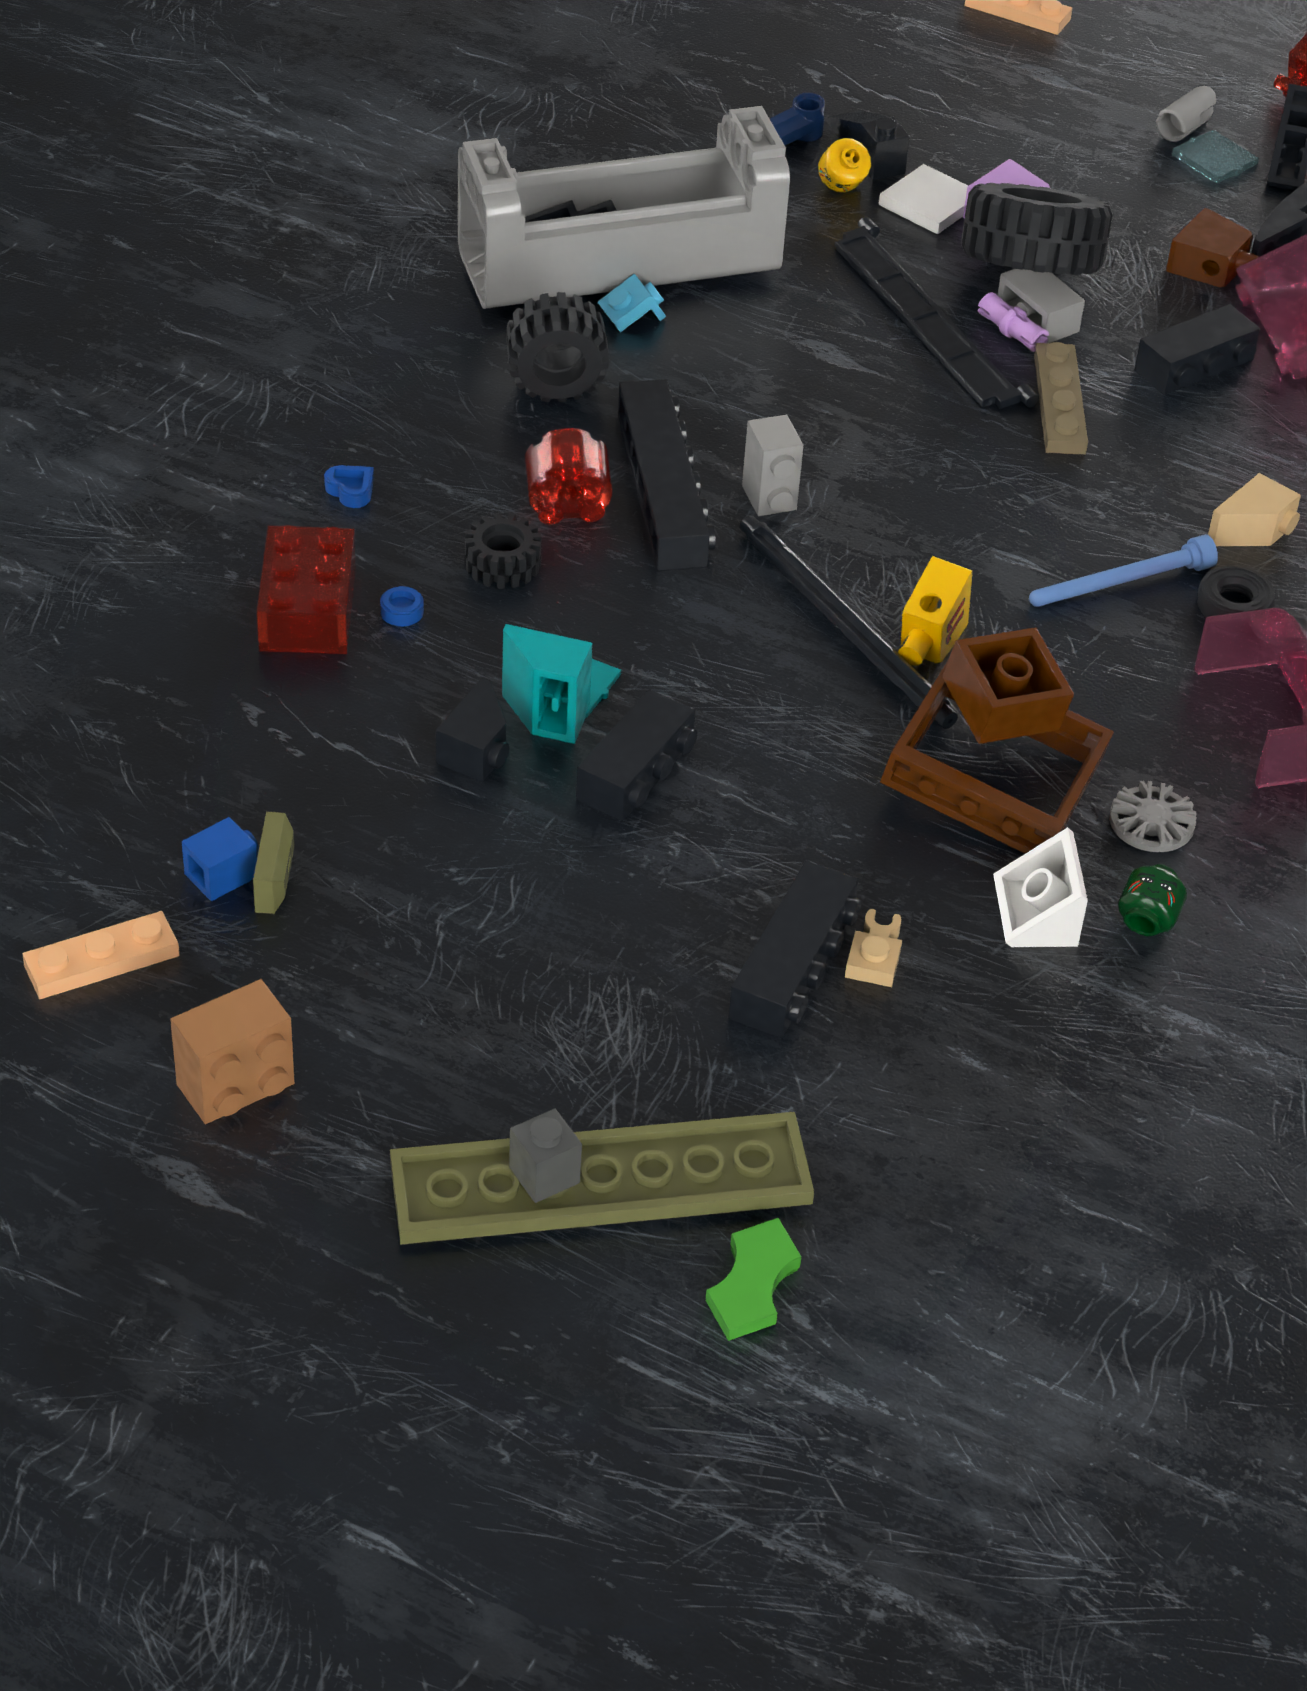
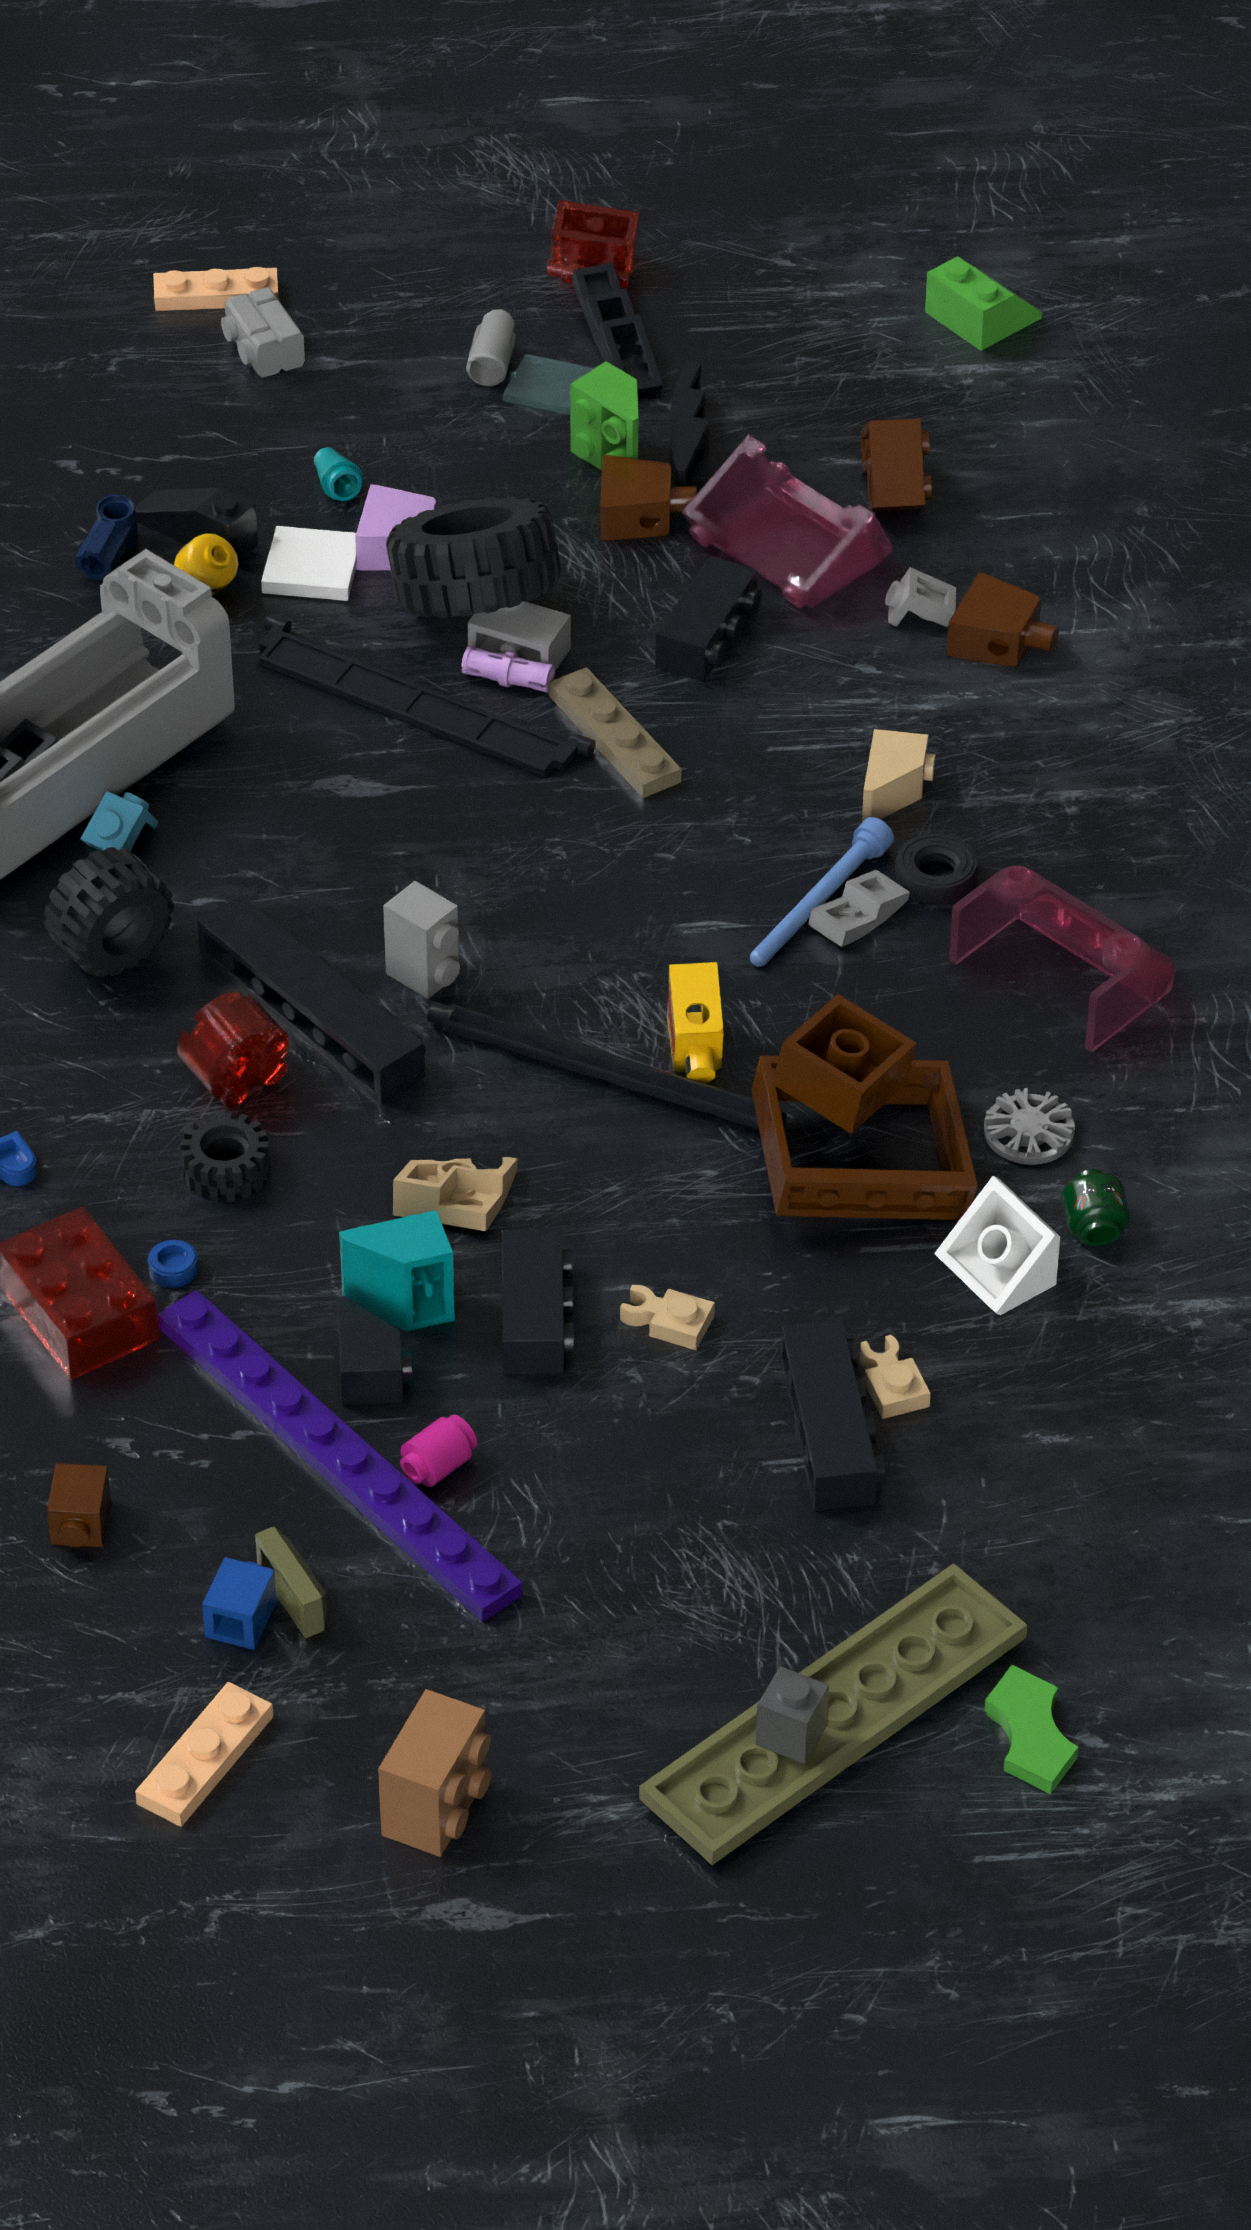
camera: 30 degrees left, 0 degrees up
(172, 733) = (78, 1505): none -> reddish brown brick
(398, 801) = (341, 1456): none -> dark purple plate
(466, 824) = (438, 1450): none -> dark pink brick
(651, 652) = (454, 1189): none -> tan slope
(739, 822) = (674, 1318): none -> tan plate
(997, 148) = (337, 474): none -> teal cone
(1023, 42) = (263, 332): none -> light grey brick
(1156, 598) = (863, 907): none -> light grey slope
(1229, 179) = (604, 415): none -> bright green slope

